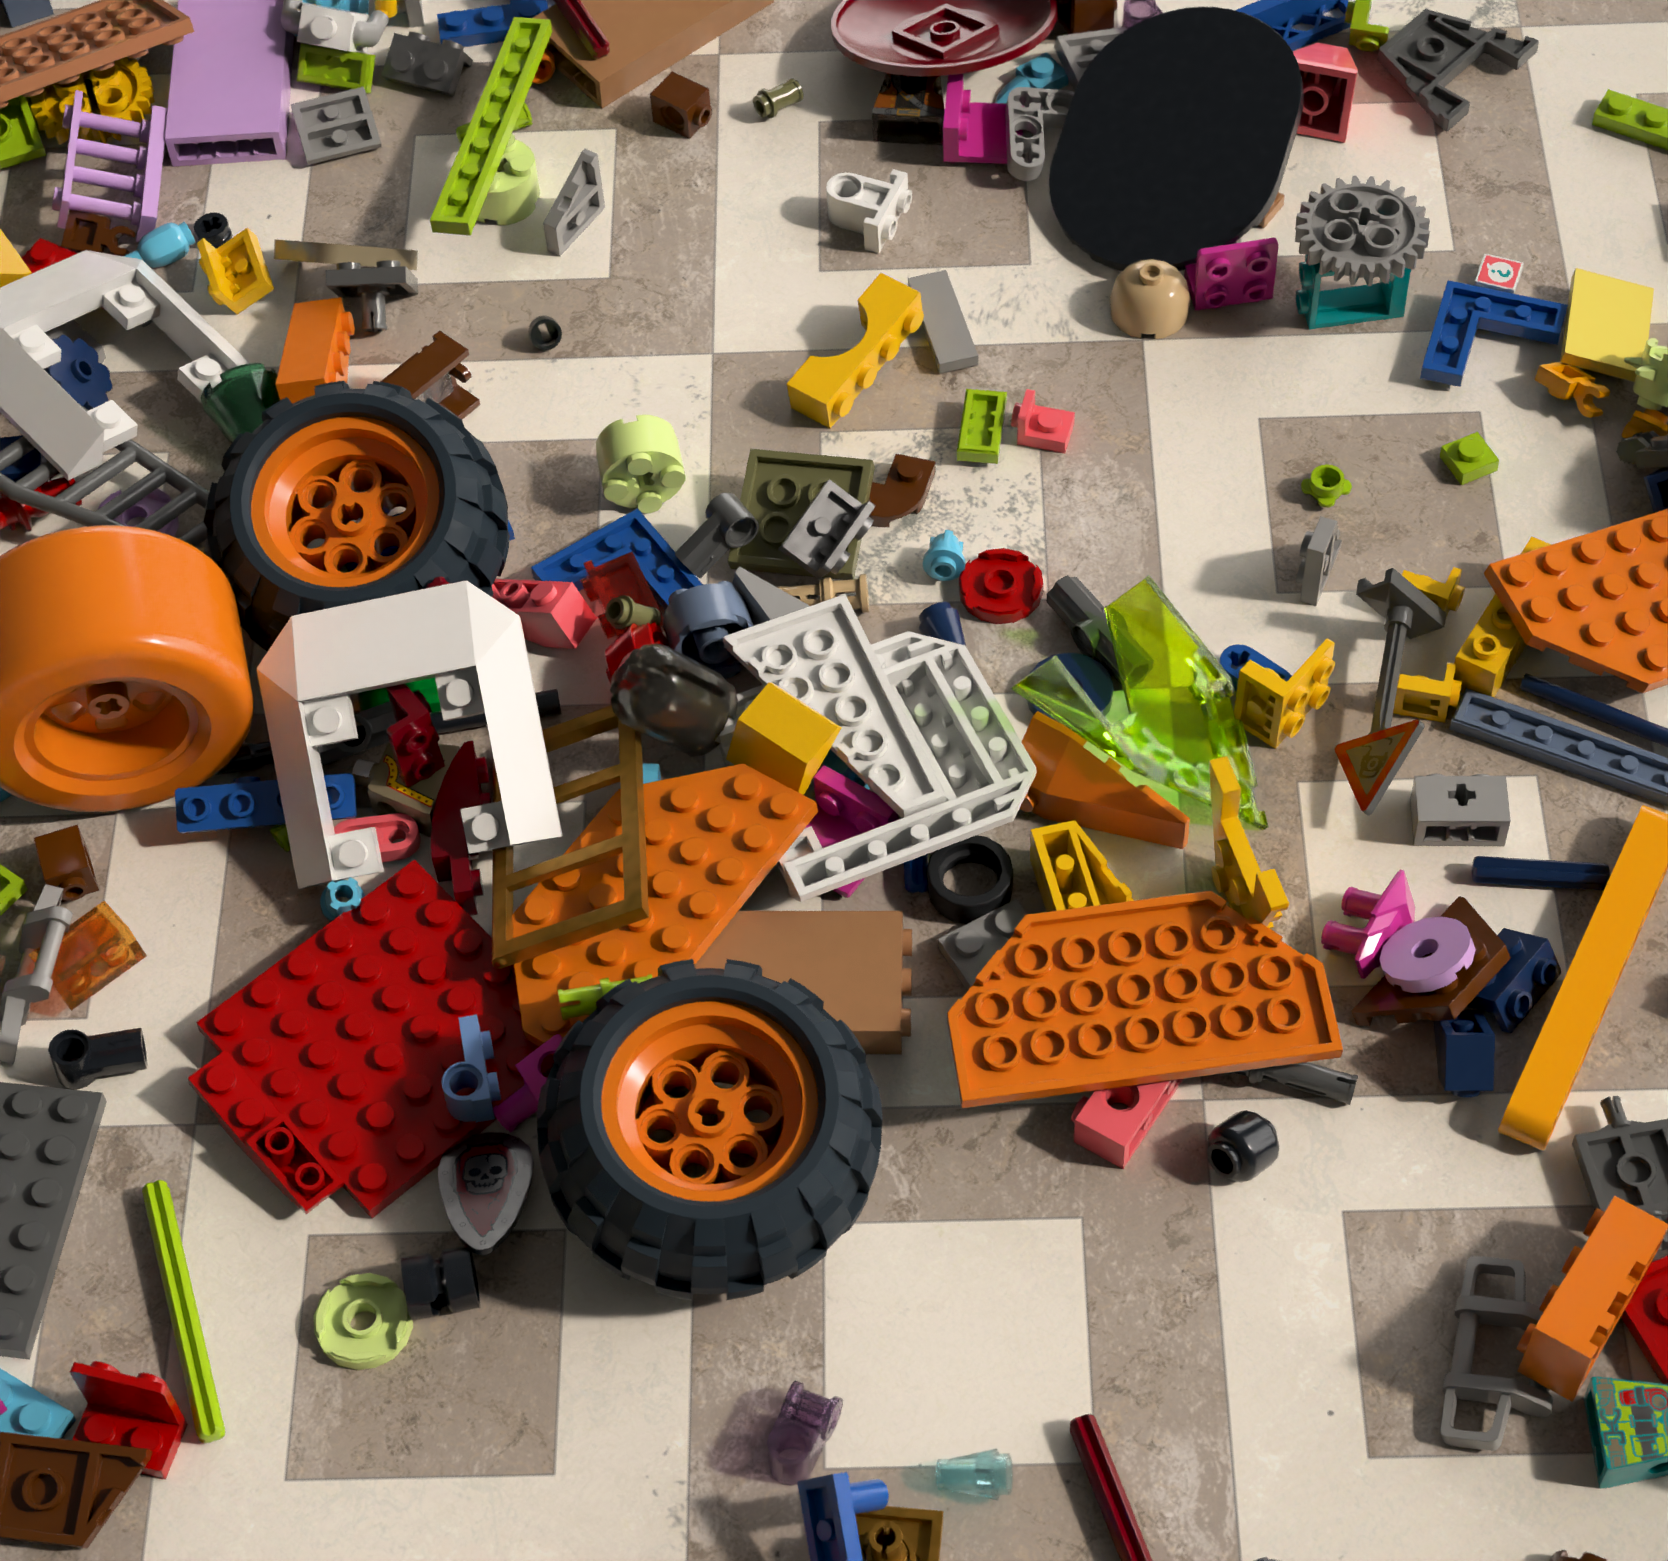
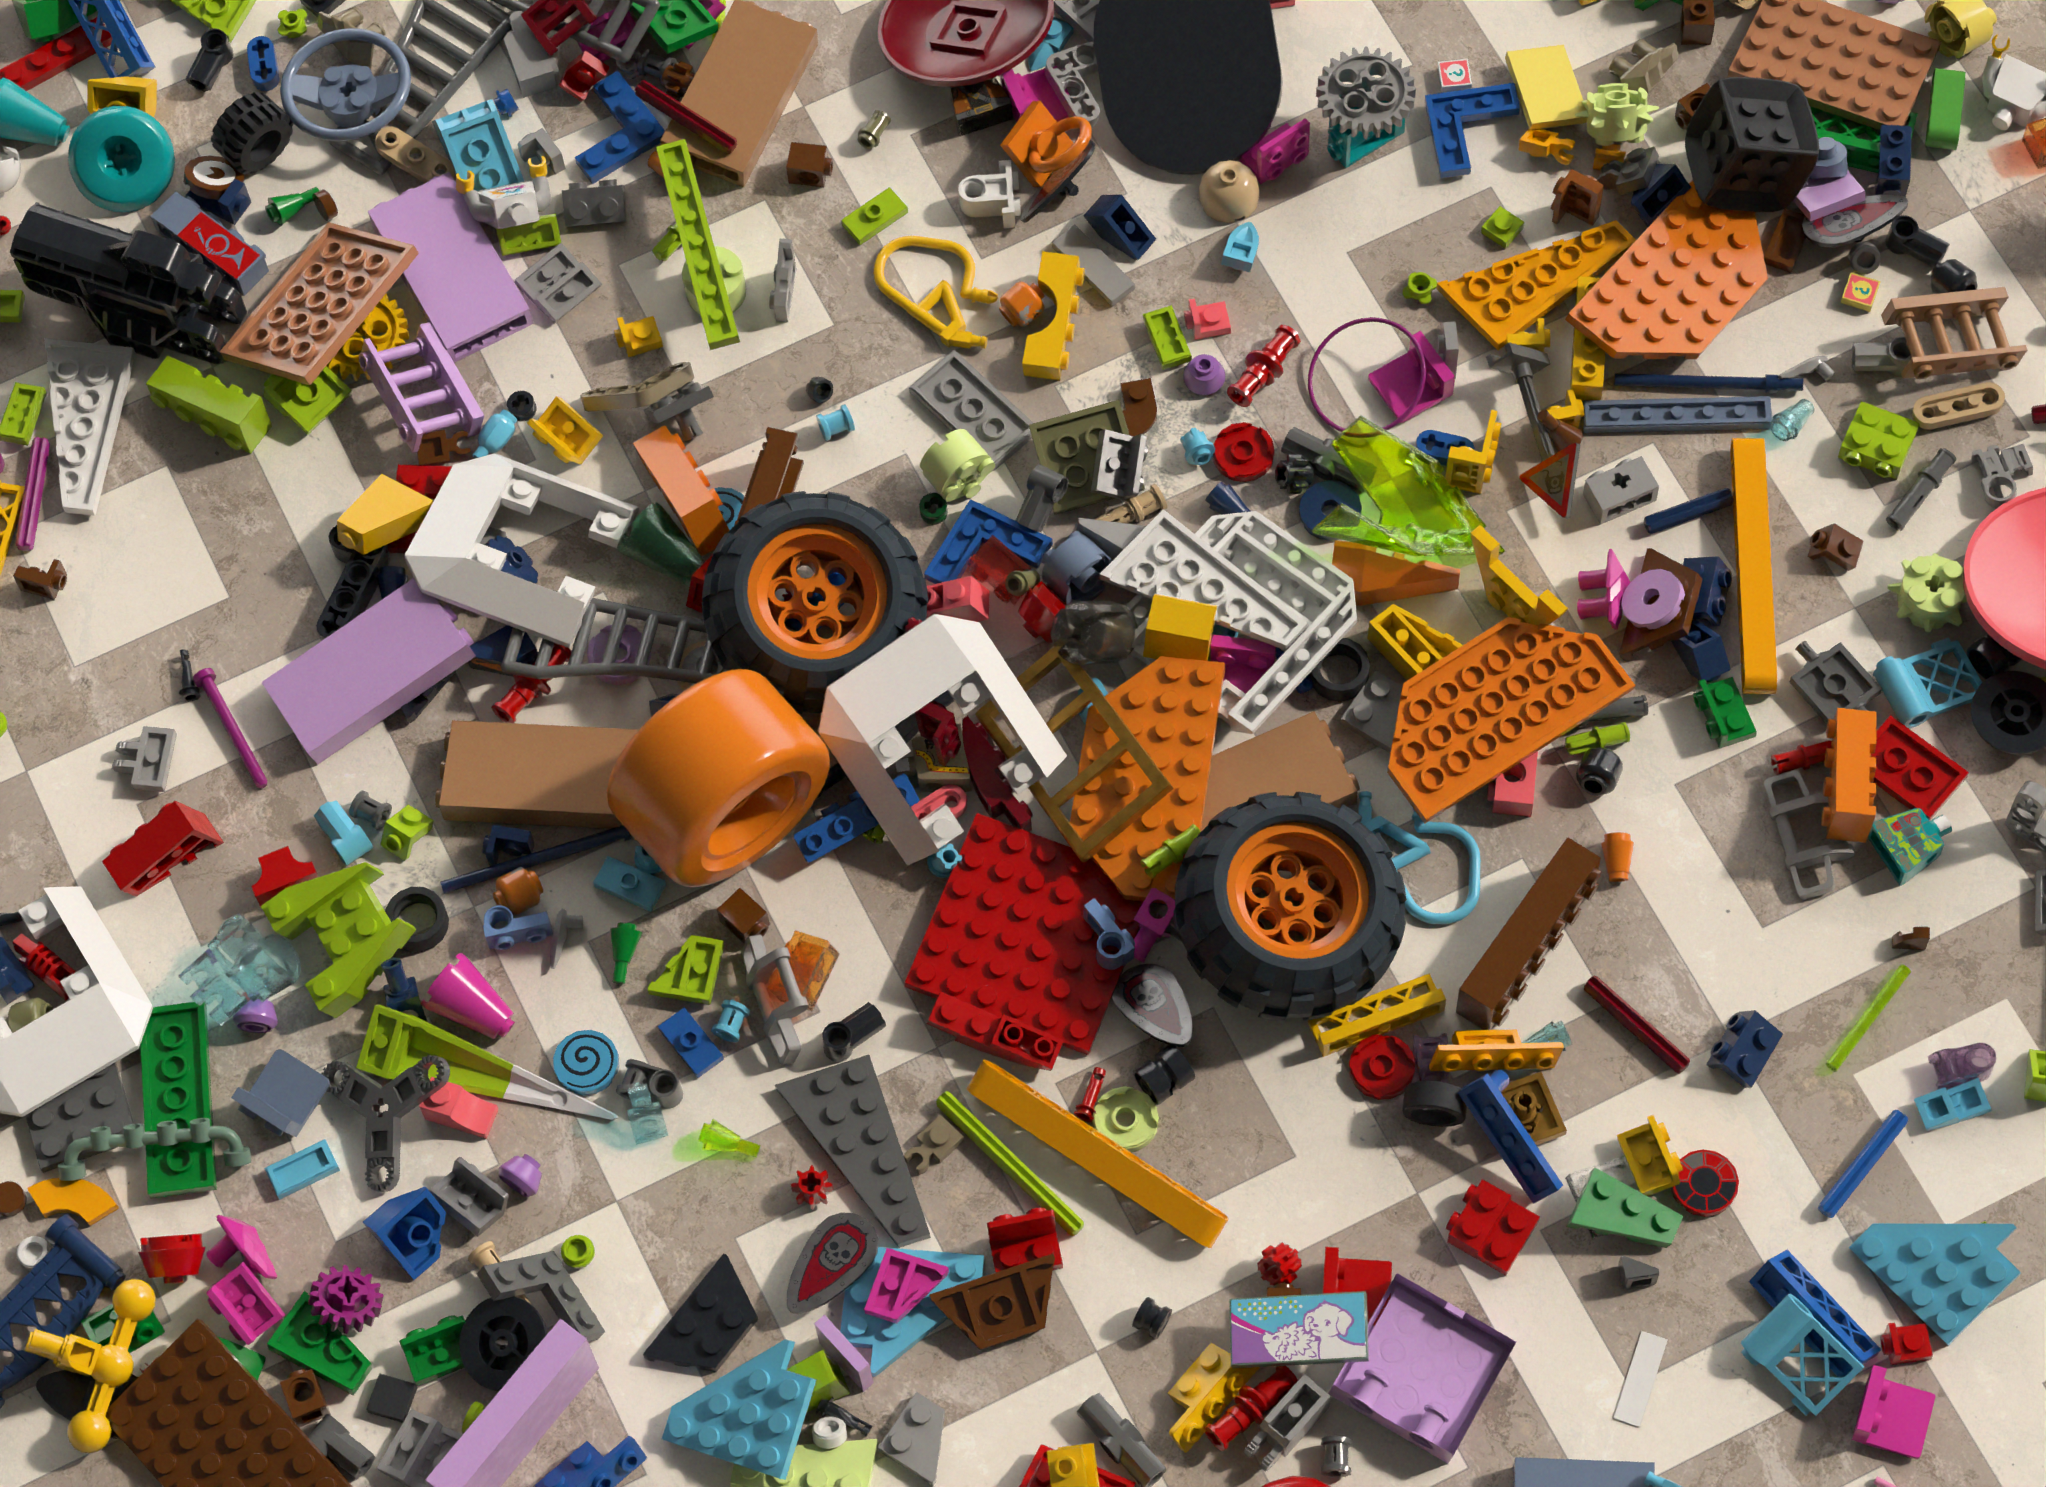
camera: 25 degrees left, 10 degrees up
(114, 1241) = (936, 1141): none -> dark tan plate
(295, 1352) = (1097, 1153): none -> light orange beam
(338, 1270) = (1086, 1108): none -> red piece
(383, 208) = (638, 336): none -> yellow bracket
(538, 371) = (835, 422): none -> medium azure bush
(595, 514) = (941, 512): none -> dark green bush
(708, 418) = (970, 402): none -> light grey tile
(724, 183) = (874, 216): none -> lime plate
(734, 1406) = (1382, 1066): none -> red tile
(739, 331) = (955, 332): none -> yellow piece
(764, 1485) = (1434, 1104): none -> black tyre
(768, 1342) = (1378, 1021): none -> yellow fence
(830, 327) = (1022, 304): none -> orange head
(888, 1450) = (1493, 1051): none -> light orange bracket
(900, 1089) = (1420, 849): none -> medium azure piece
(952, 167) = (1041, 145): none -> orange tile
(953, 218) = (1057, 183): none -> shield
(997, 289) = (1120, 225): none -> dark blue slope
(1003, 482) = (1204, 375): none -> medium lavender cone
(1022, 1316) = (1529, 935): none -> reddish brown brick
(1044, 629) = (1294, 474): none -> black gear
(1078, 496) = (1263, 366): none -> red piece
(1128, 364) = (1241, 247): none -> medium azure plate
(1210, 1267) = (1617, 855): none -> orange cone
(1258, 584) = (1401, 379): none -> dark pink bracket
(1267, 1104) = (1597, 738): none -> lime axle
(1276, 543) = (1351, 323): none -> magenta piece
(1413, 705) = (1560, 431): none -> reddish brown cone
(1460, 1145) = (1725, 712): none -> green bracket
(1469, 527) = (1534, 282): none -> light orange wing
(1532, 1247) = (1800, 757): none -> red axle
(1578, 449) = (1577, 196): none -> dark orange bracket

